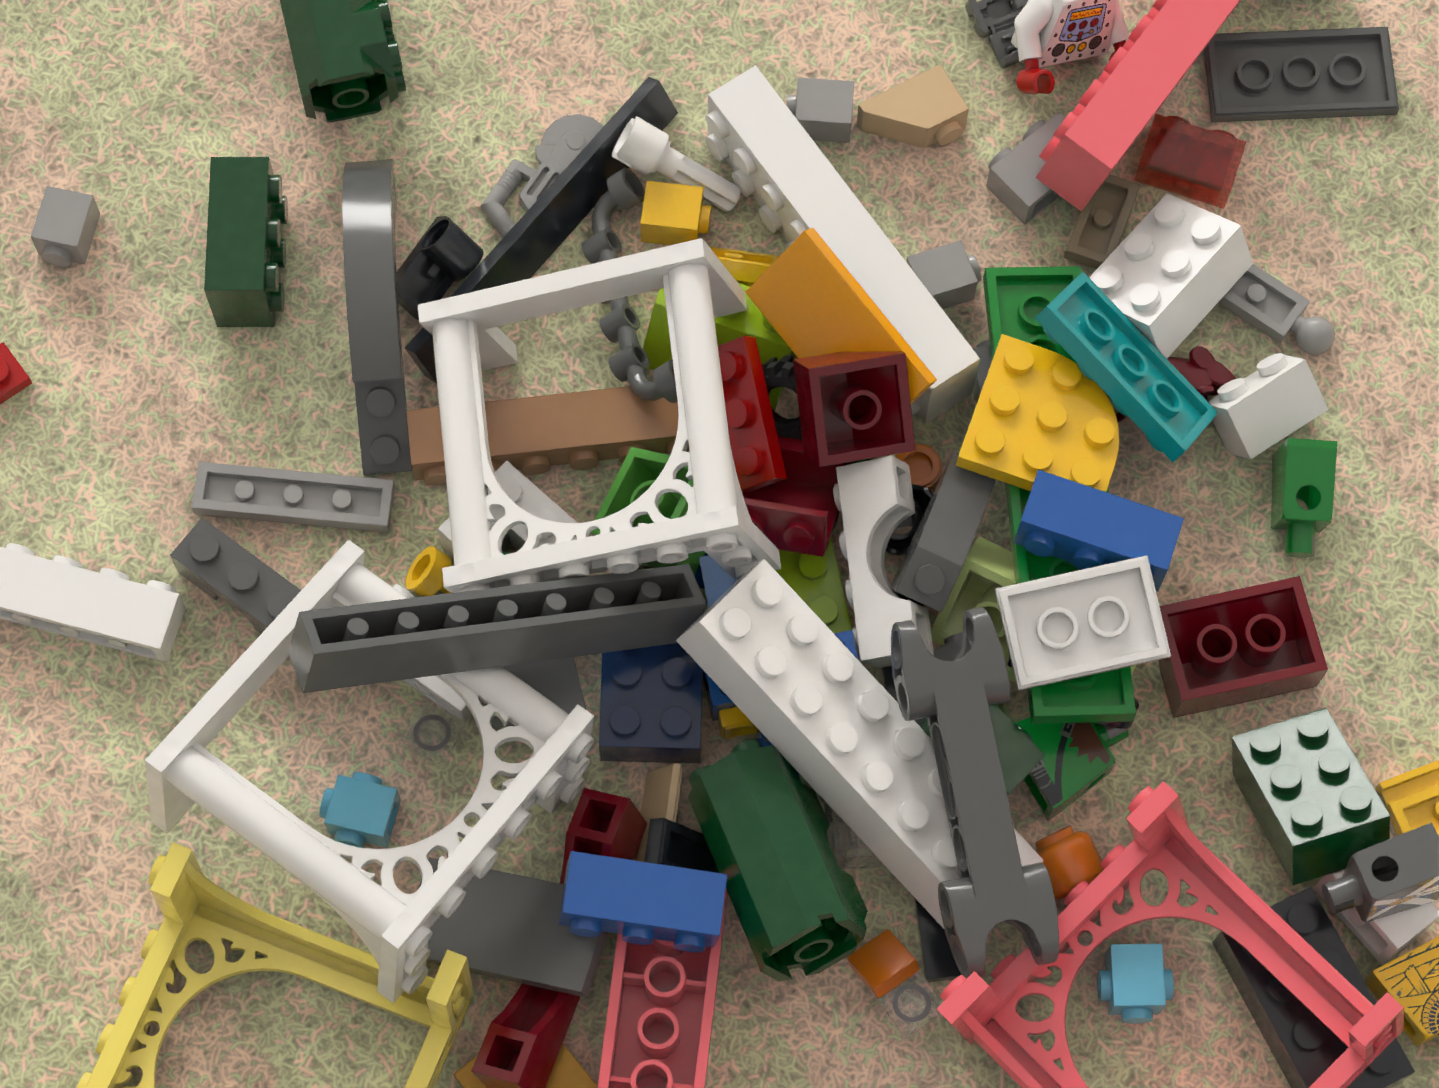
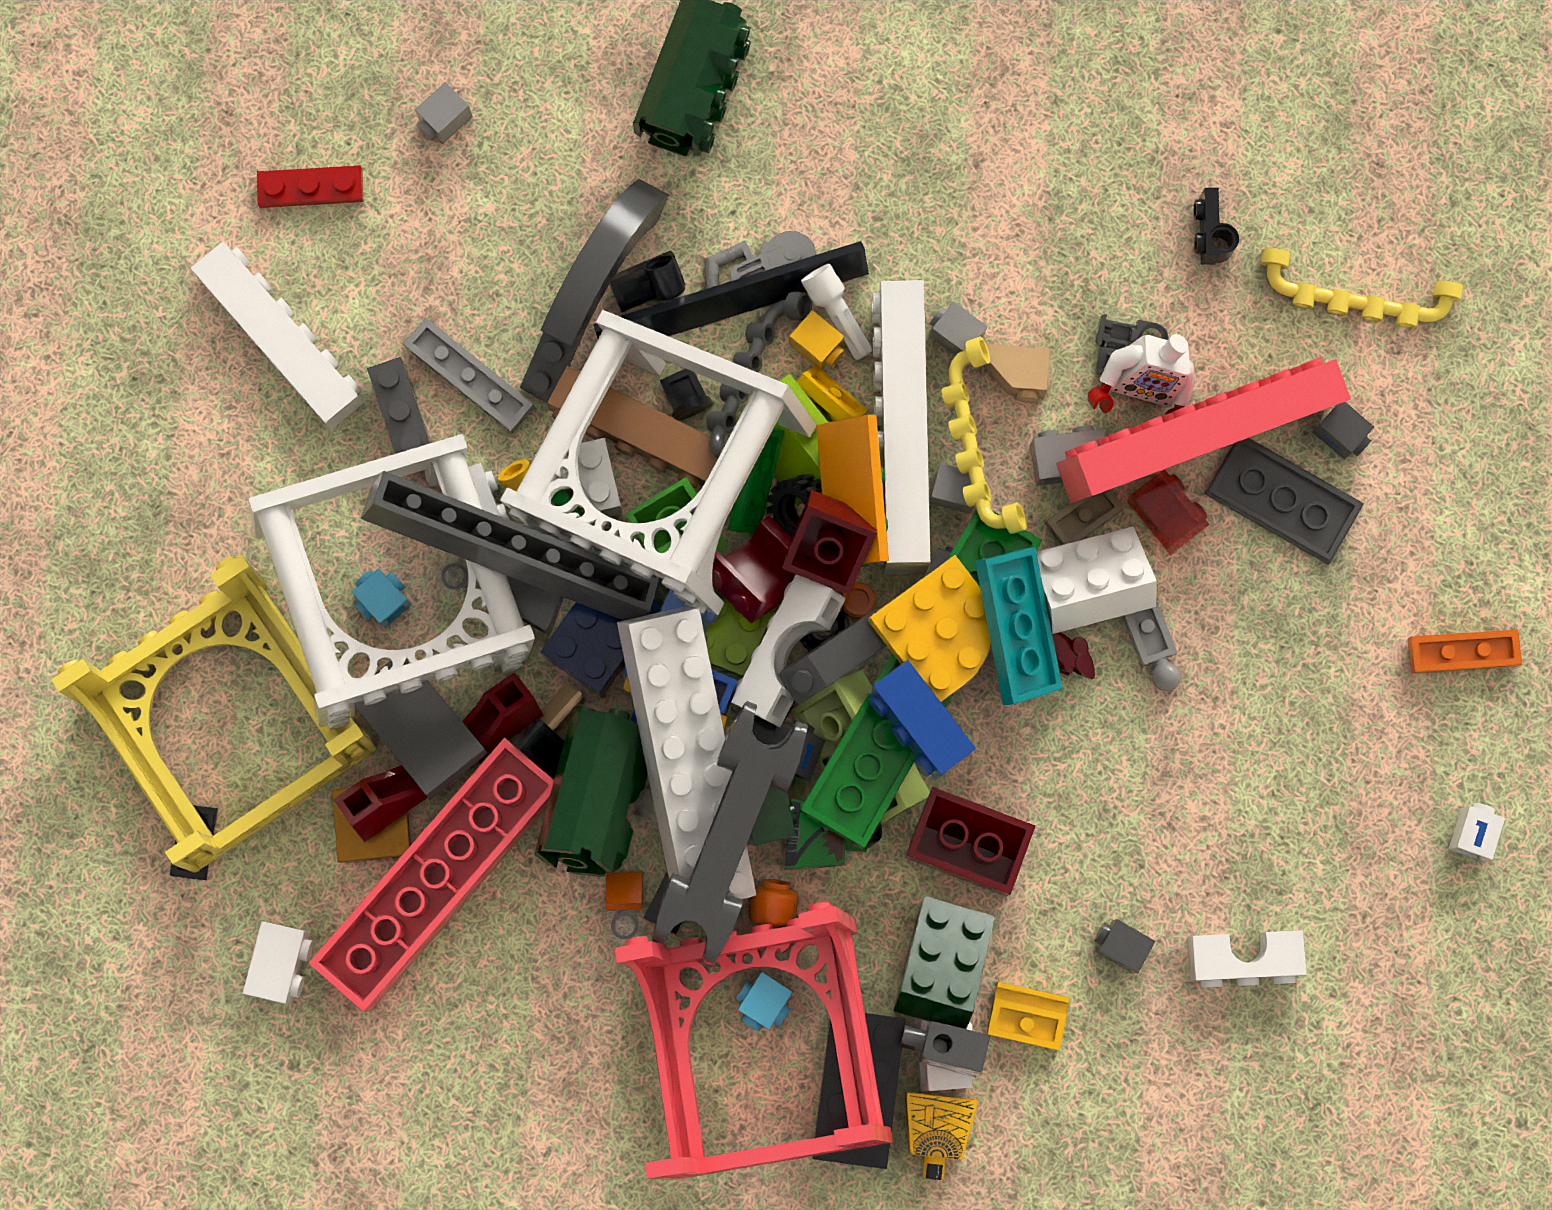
camera: 35 degrees right, 10 degrees up
(245, 242) = (539, 194): dark green brick -> none
(560, 364) = (685, 394): none -> black tile
(642, 901) = (493, 766): blue brick -> none
(749, 416) = (767, 502): red plate -> none
(939, 228) = (965, 429): none -> light yellow bar
(1082, 623) = (866, 773): white tile -> none
(1266, 405) = (1099, 702): white brick -> none
(1305, 472) = (1090, 761): green torso -> none

